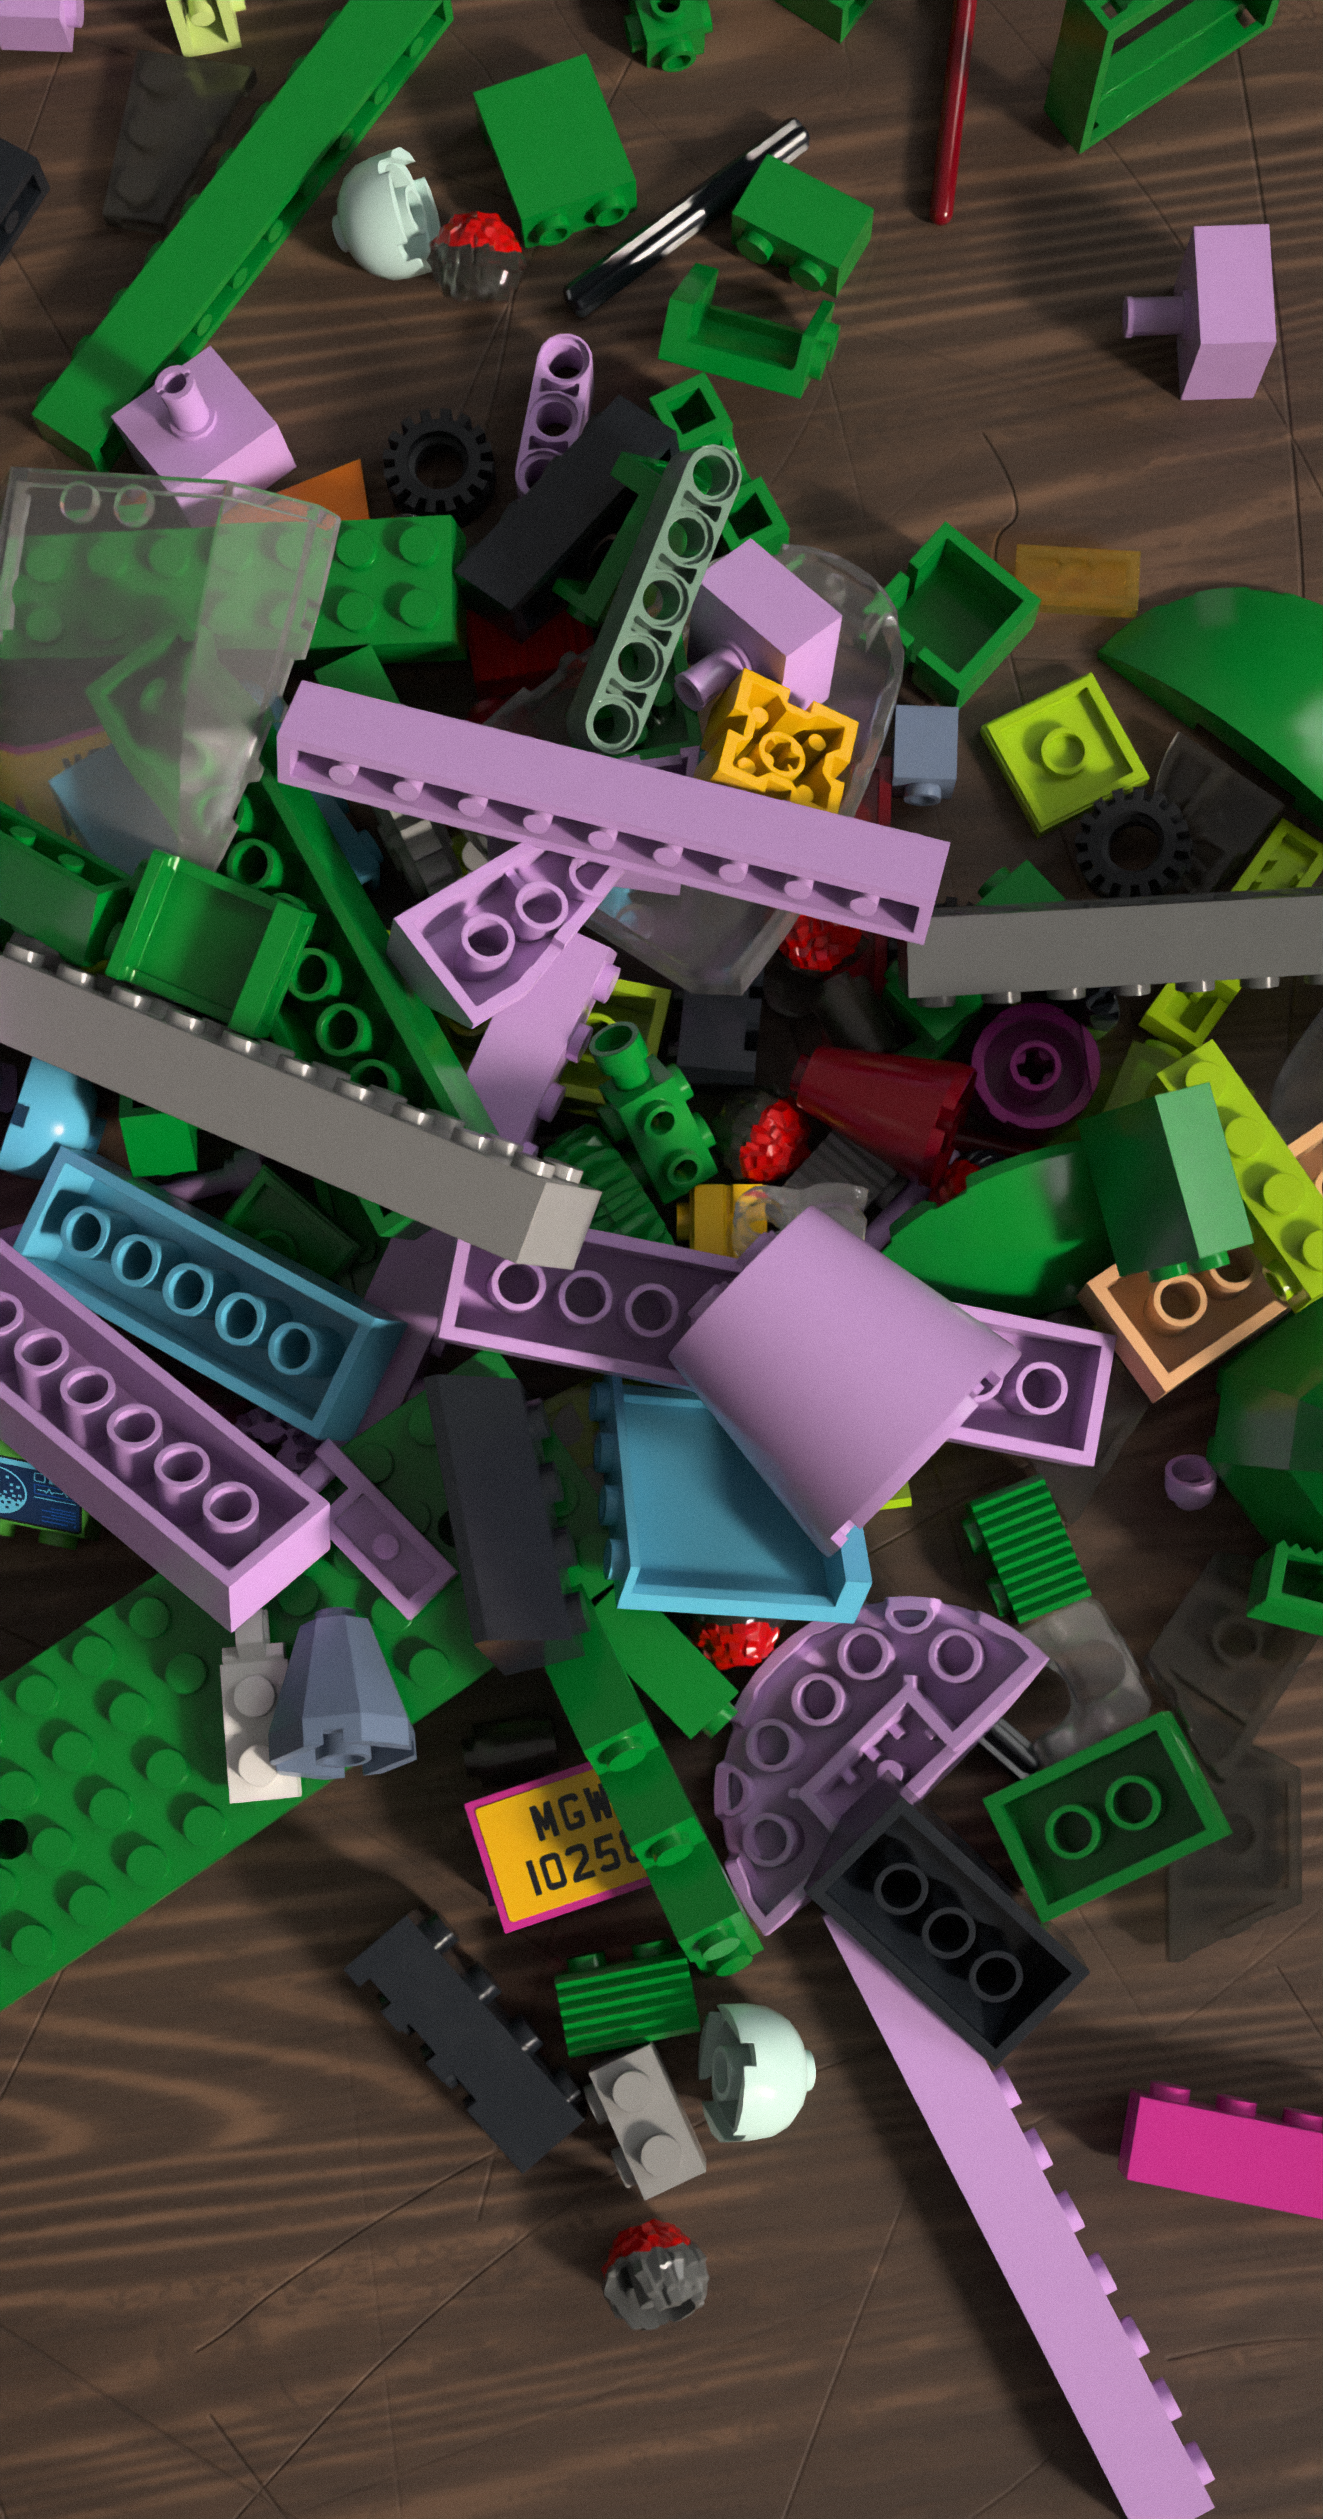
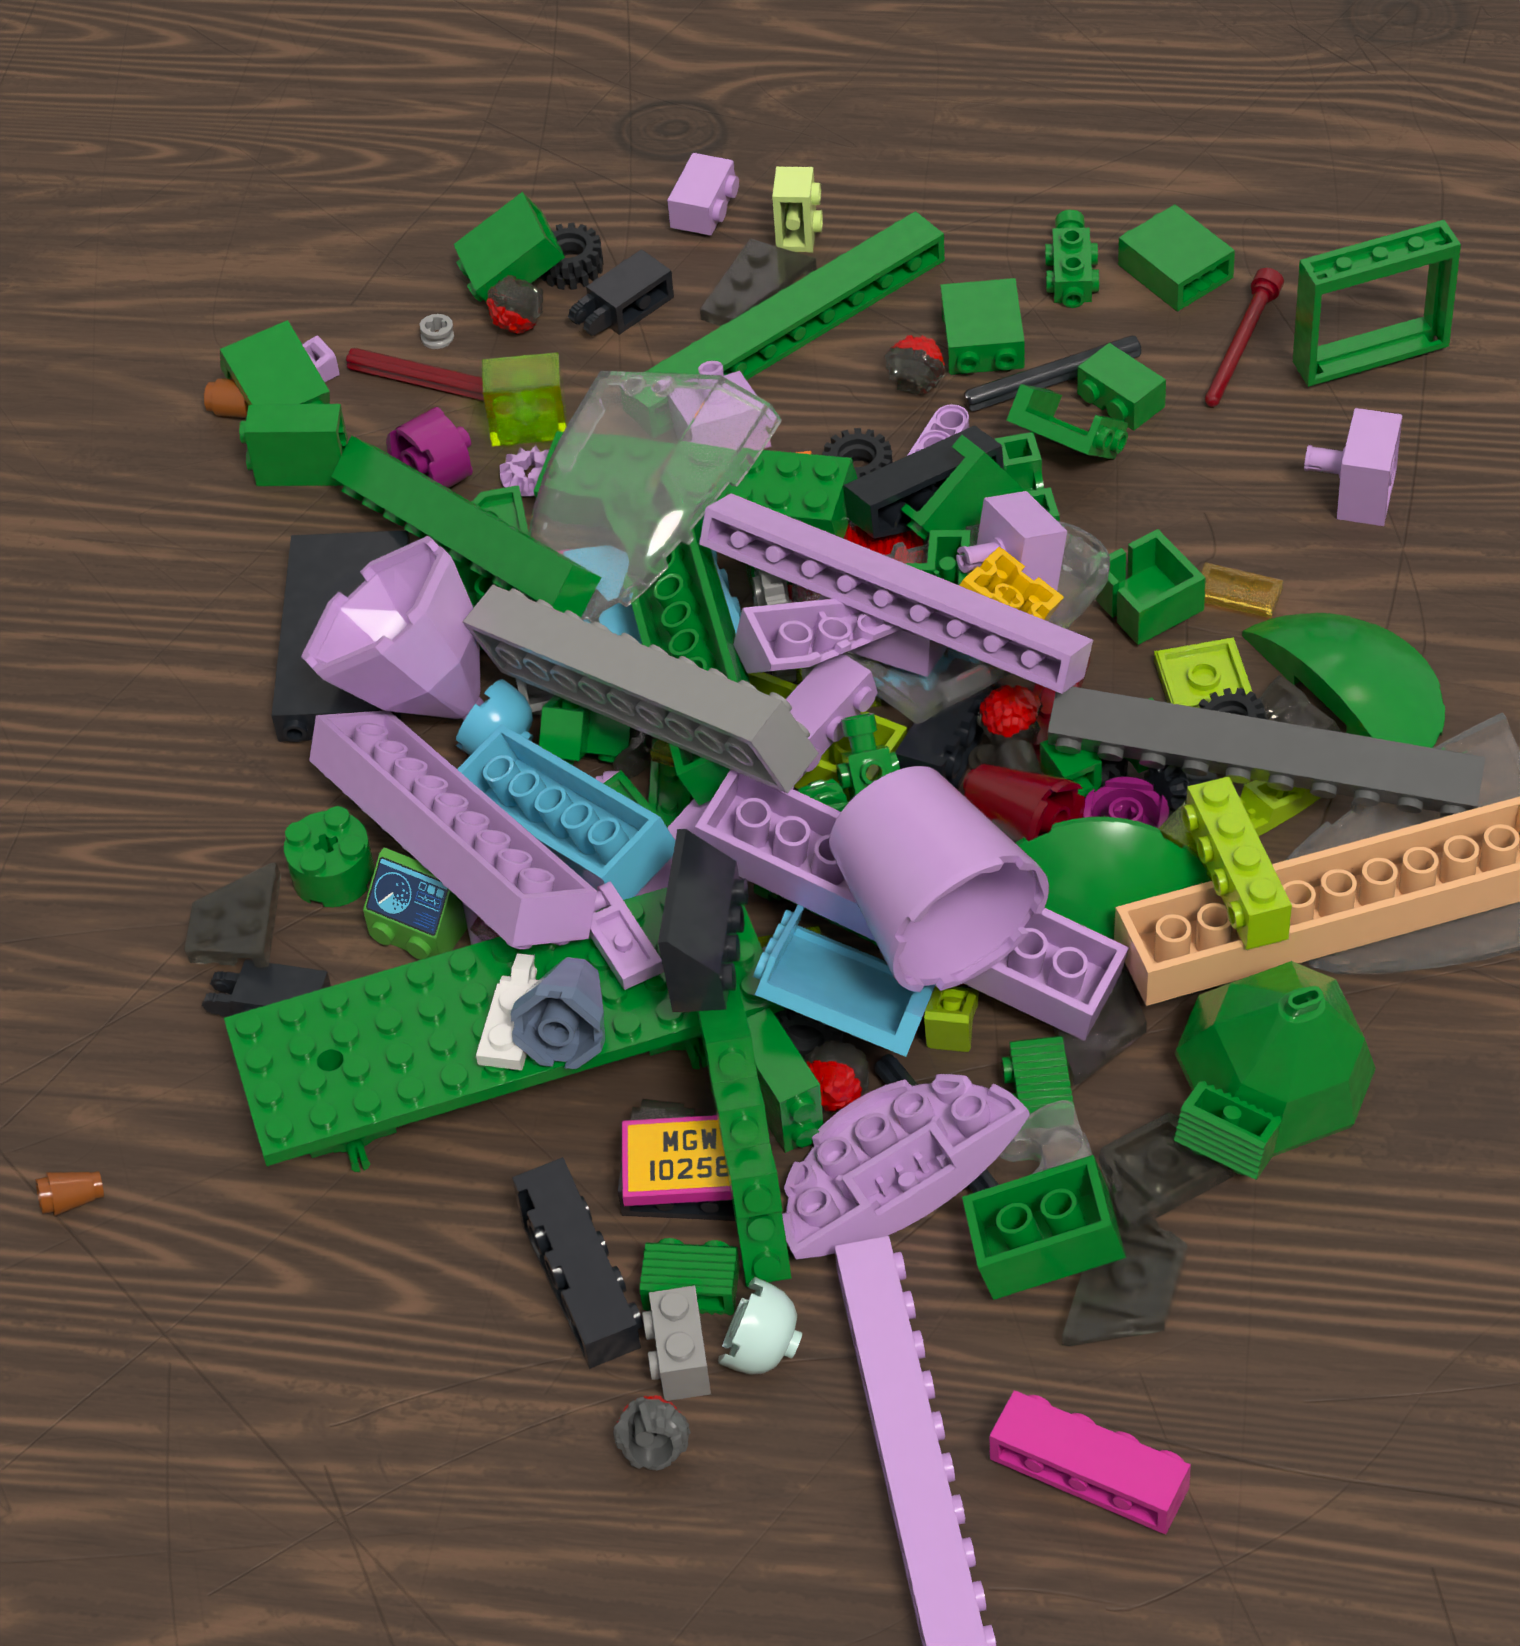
camera: 15 degrees right, 30 degrees down
(208, 942) = (632, 602): green panel -> none
(386, 217) = (867, 334): light aqua cylinder -> none
(678, 581) = (966, 489): sand green beam -> none
(924, 753) = (1112, 655): sand blue brick -> none
(943, 1919) = (915, 1254): black slope -> none
(1166, 1184) = (1173, 836): green brick -> none
(1190, 1482) = (1163, 1075): lavender hinge -> none

